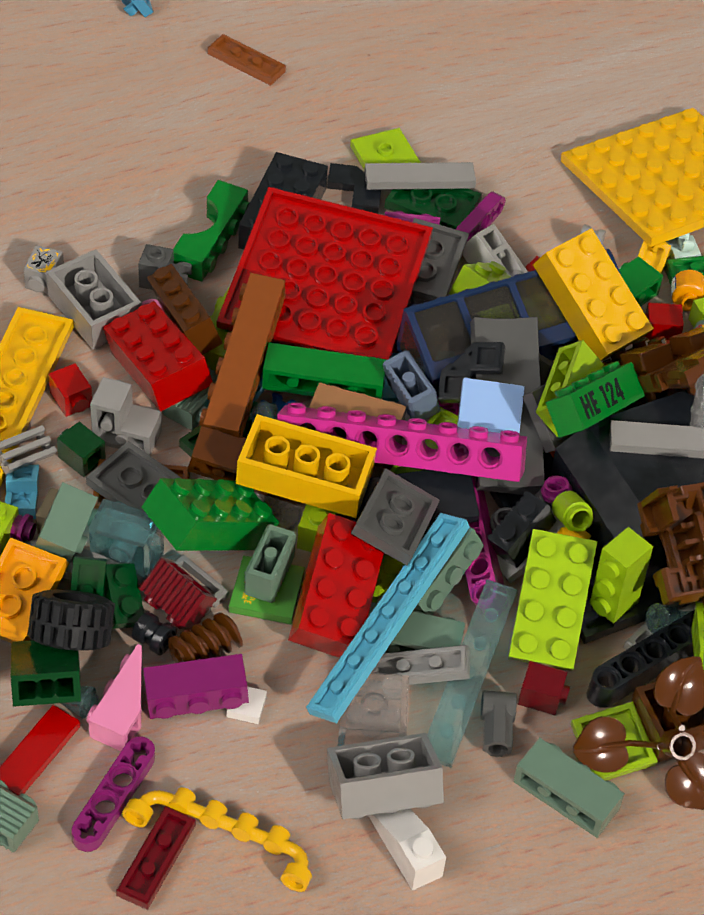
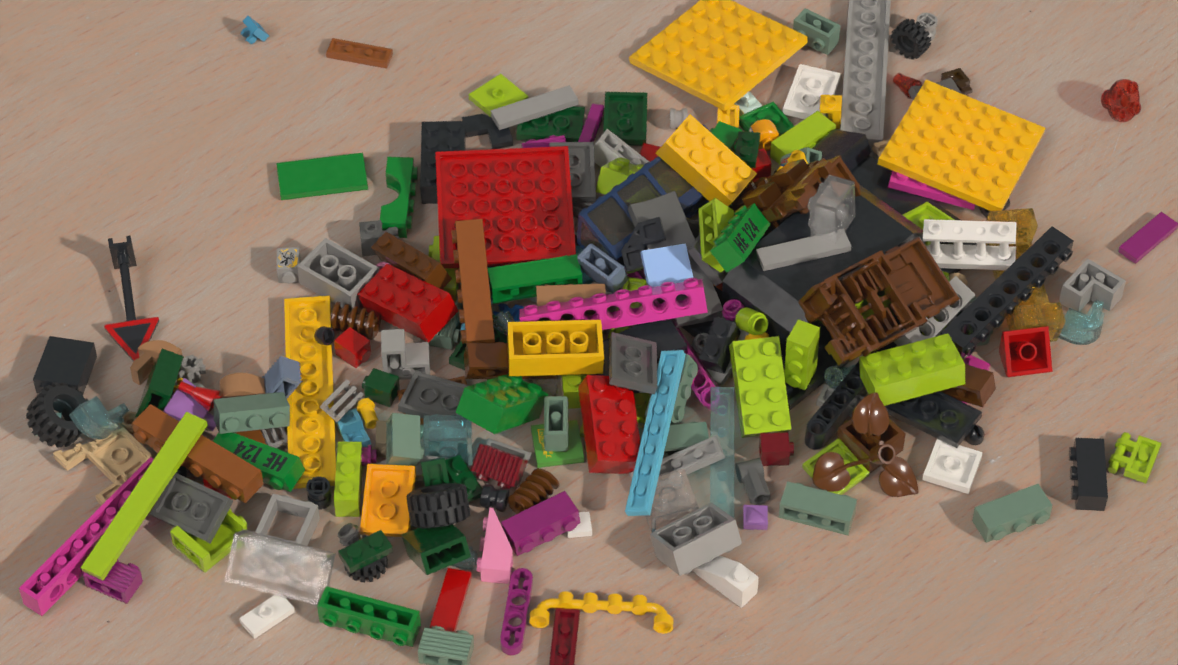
camera: 15 degrees left, 0 degrees up
(40, 361) = (324, 335): none -> black hinge
(51, 469) = (366, 409): none -> yellow pin
(91, 359) = (363, 324): none -> reddish brown piece
(135, 181) = (322, 176): none -> green tile
(481, 771) = (755, 517): none -> medium lavender tile
(528, 219) = (626, 116): none -> dark green plate
(660, 298) = (748, 147): none -> dark green plate

